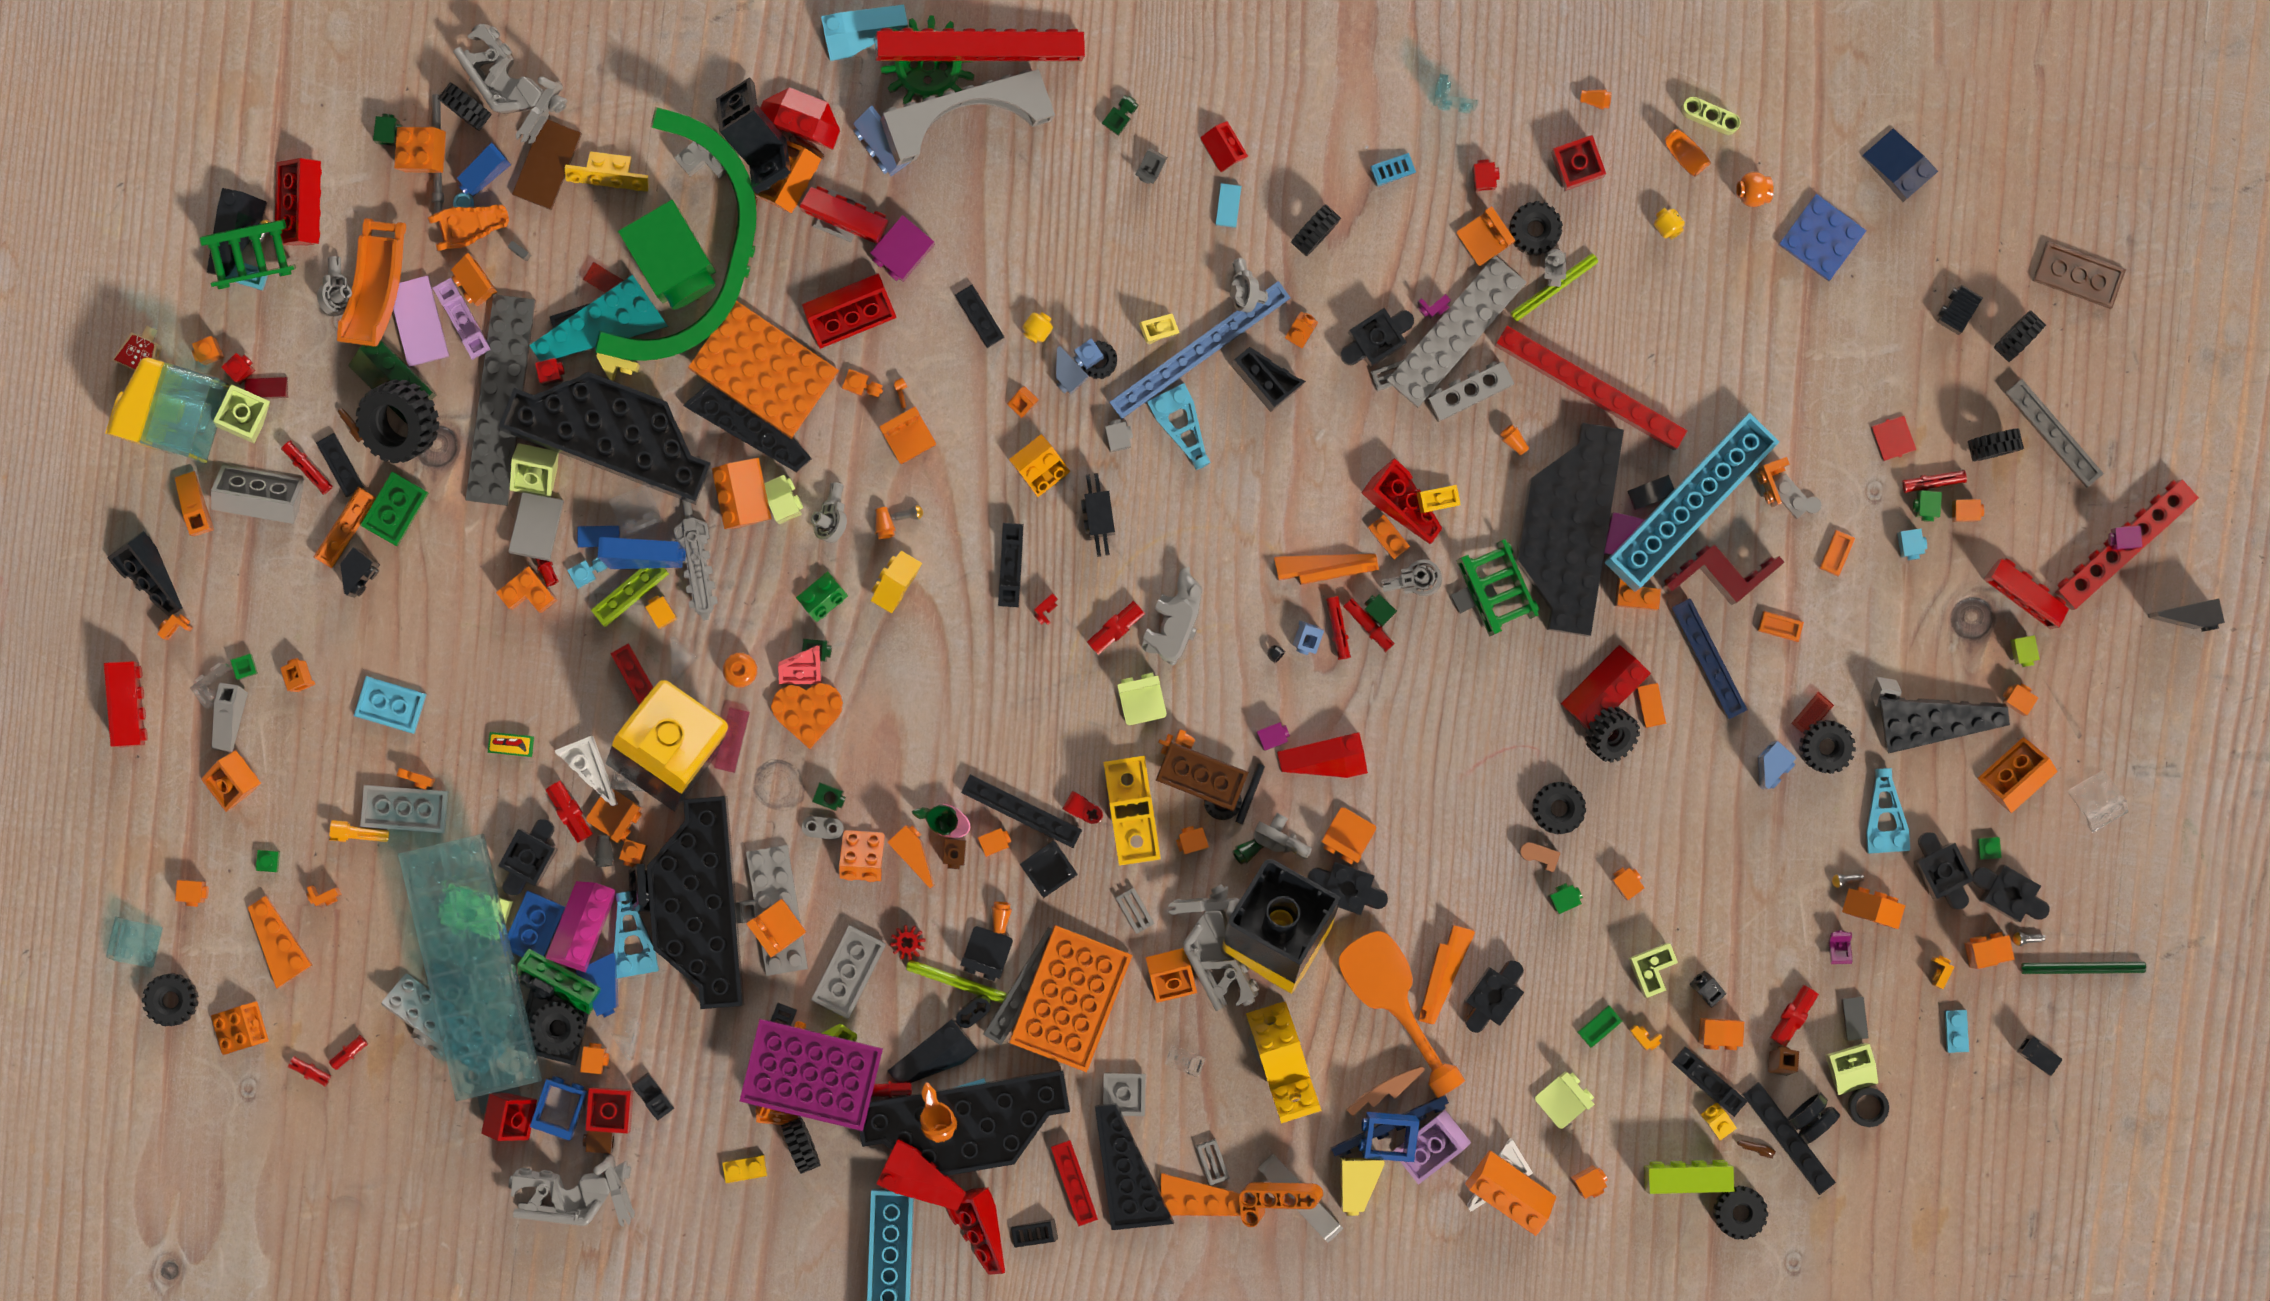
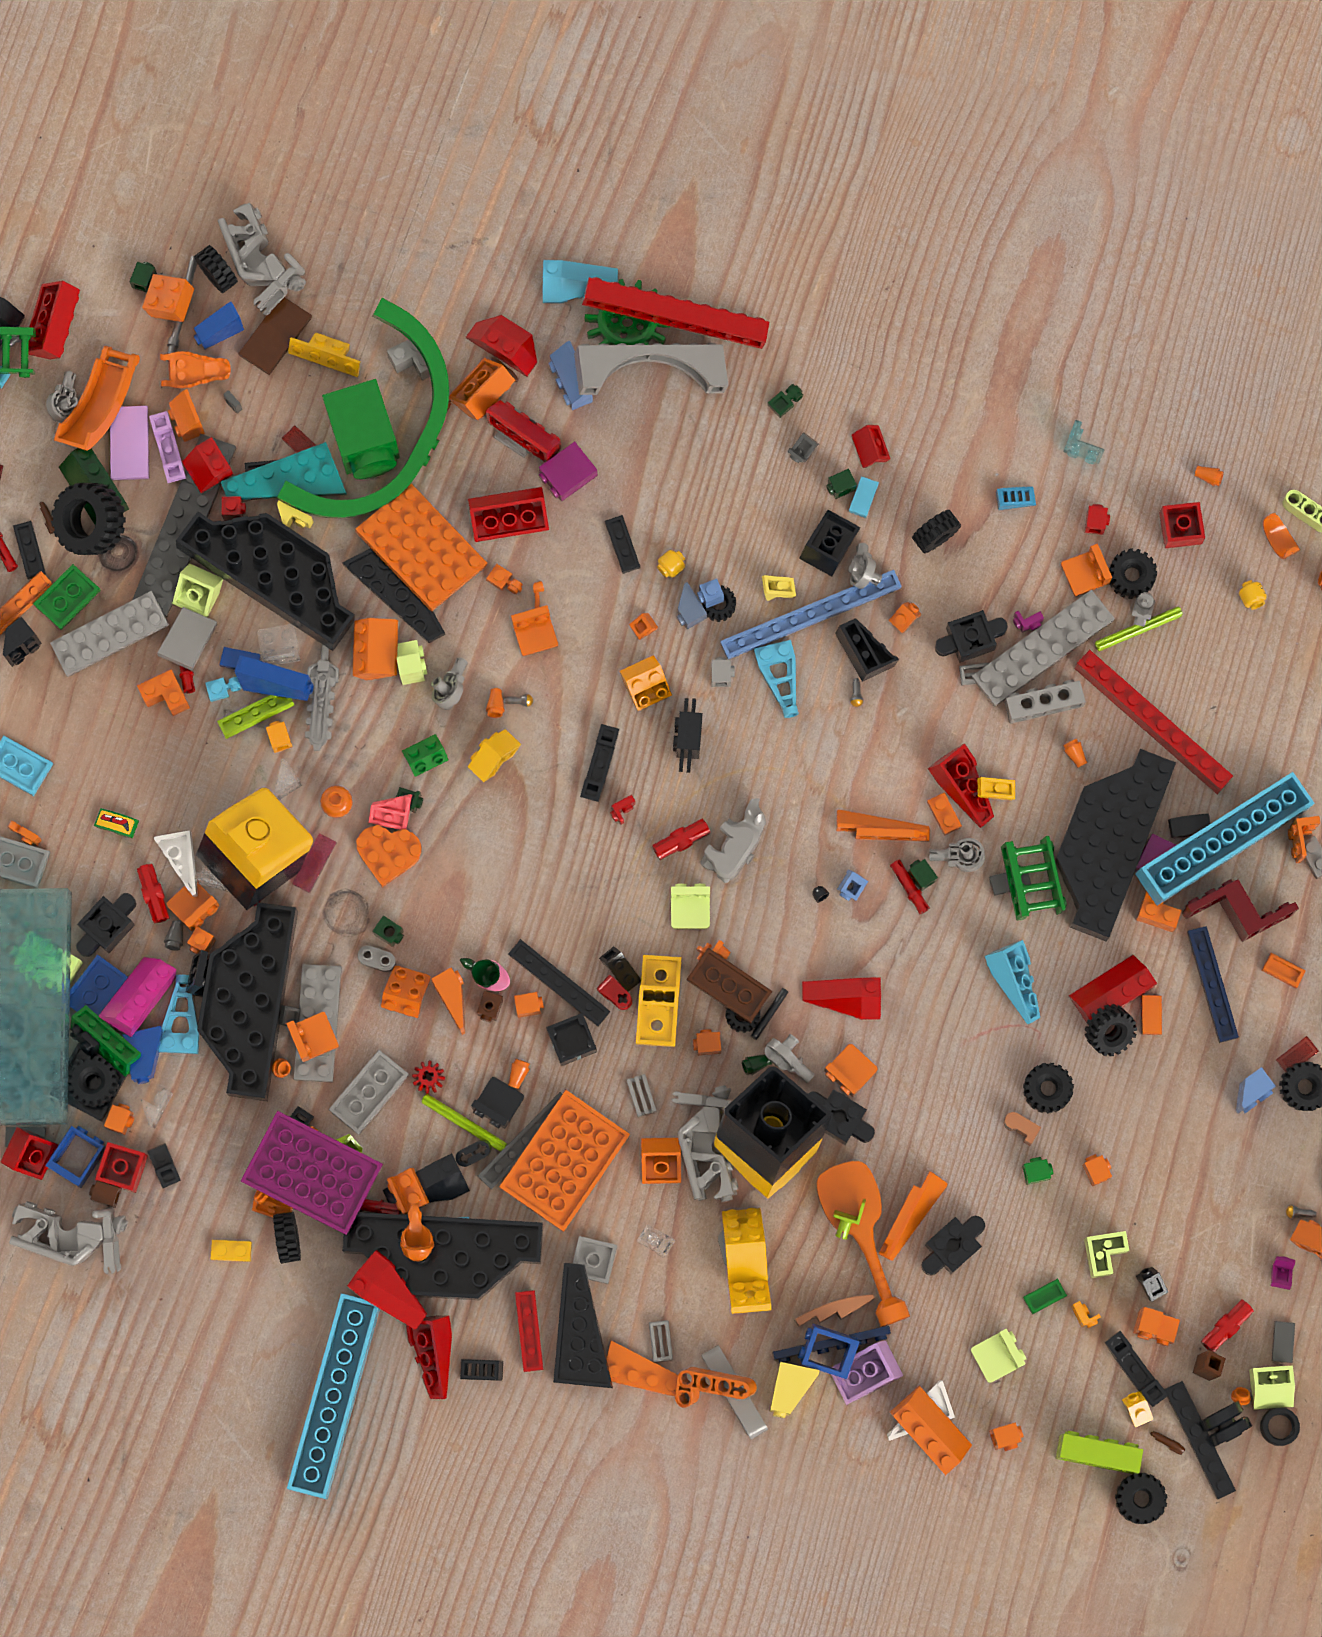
camera: 15 degrees right, 10 degrees down
(451, 539) = (109, 633): none -> light grey plate
(463, 200) = (195, 348): medium azure plate -> none
(510, 331) = (207, 465): none -> red slope
(632, 672) = (239, 778): red plate -> none
(750, 967) = (281, 1068): none -> orange plate
(753, 135) = (460, 346): black bracket -> none
(914, 1068) = (407, 1190): none -> orange bracket
(1082, 781) = (620, 968): none -> black bracket
(1201, 197) = (841, 484): none -> dark green brick
(1203, 265) = (829, 543): none -> black slope
(1269, 432) = (856, 699): none -> flat silver piece
(1273, 736) = (801, 966): magenta brick -> none
(1337, 623) = (881, 883): red pin -> none
(1379, 996) = (846, 1221): none -> lime bracket
(1496, 695) = (1011, 972): none -> medium azure wedge
(1822, 1084) = (1242, 1395): none -> orange plate

